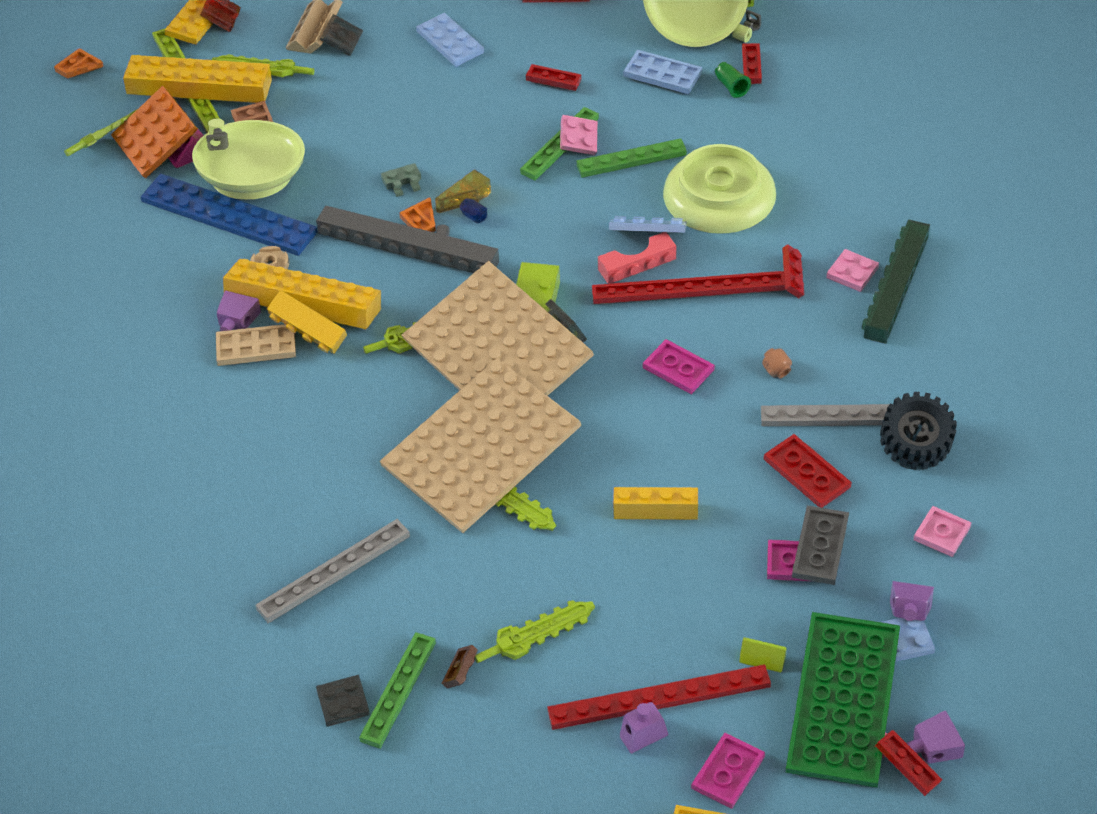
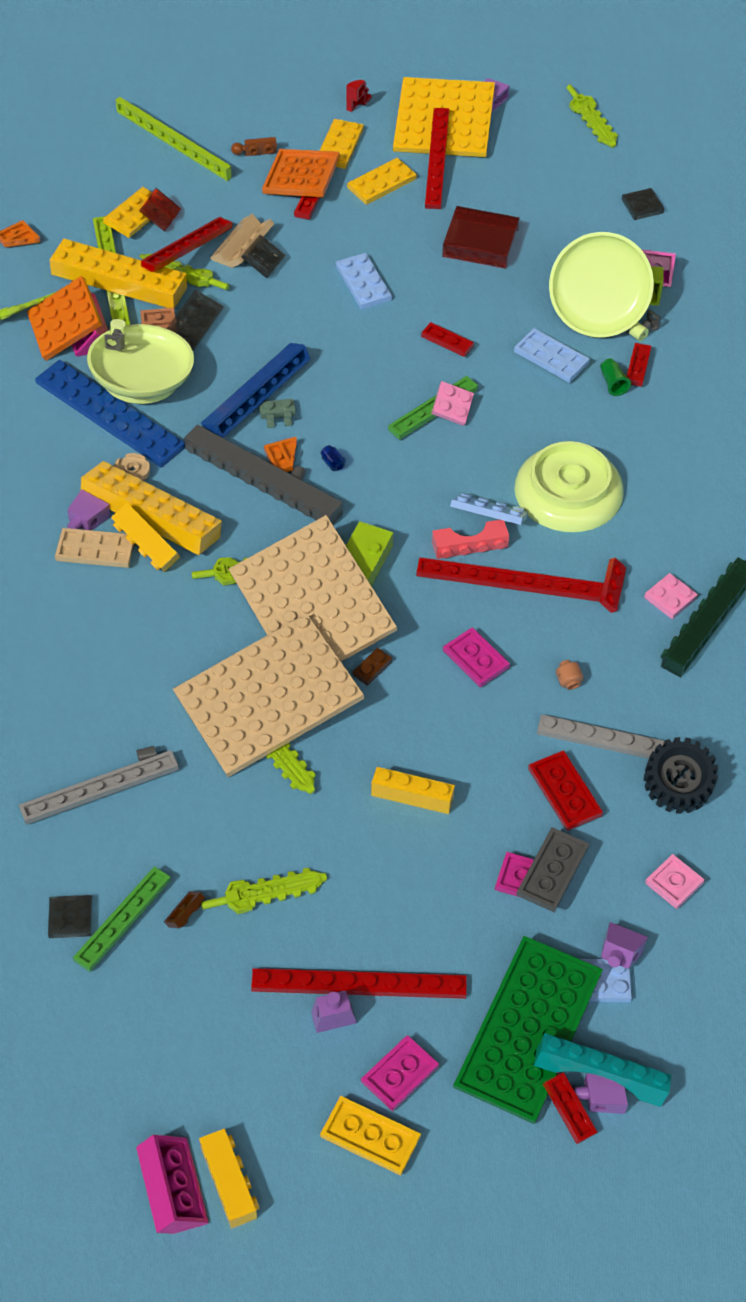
camera: 10 degrees right, 5 degrees up
(260, 37) = (186, 244): none -> red plate
(290, 105) = (195, 318): none -> clear smoke plate
(371, 527) = (146, 753): none -> dark grey hinge
(375, 161) = (256, 389): none -> blue brick
(472, 186) = (338, 435): clear yellow slope -> none
(565, 320) = (382, 590): clear smoke plate -> none
(577, 397) = (372, 666): none -> reddish brown plate
(631, 157) = (496, 436): bright green plate -> none
(760, 653) = (466, 964): lime slope -> none
(887, 712) = (562, 1055): none -> teal arch

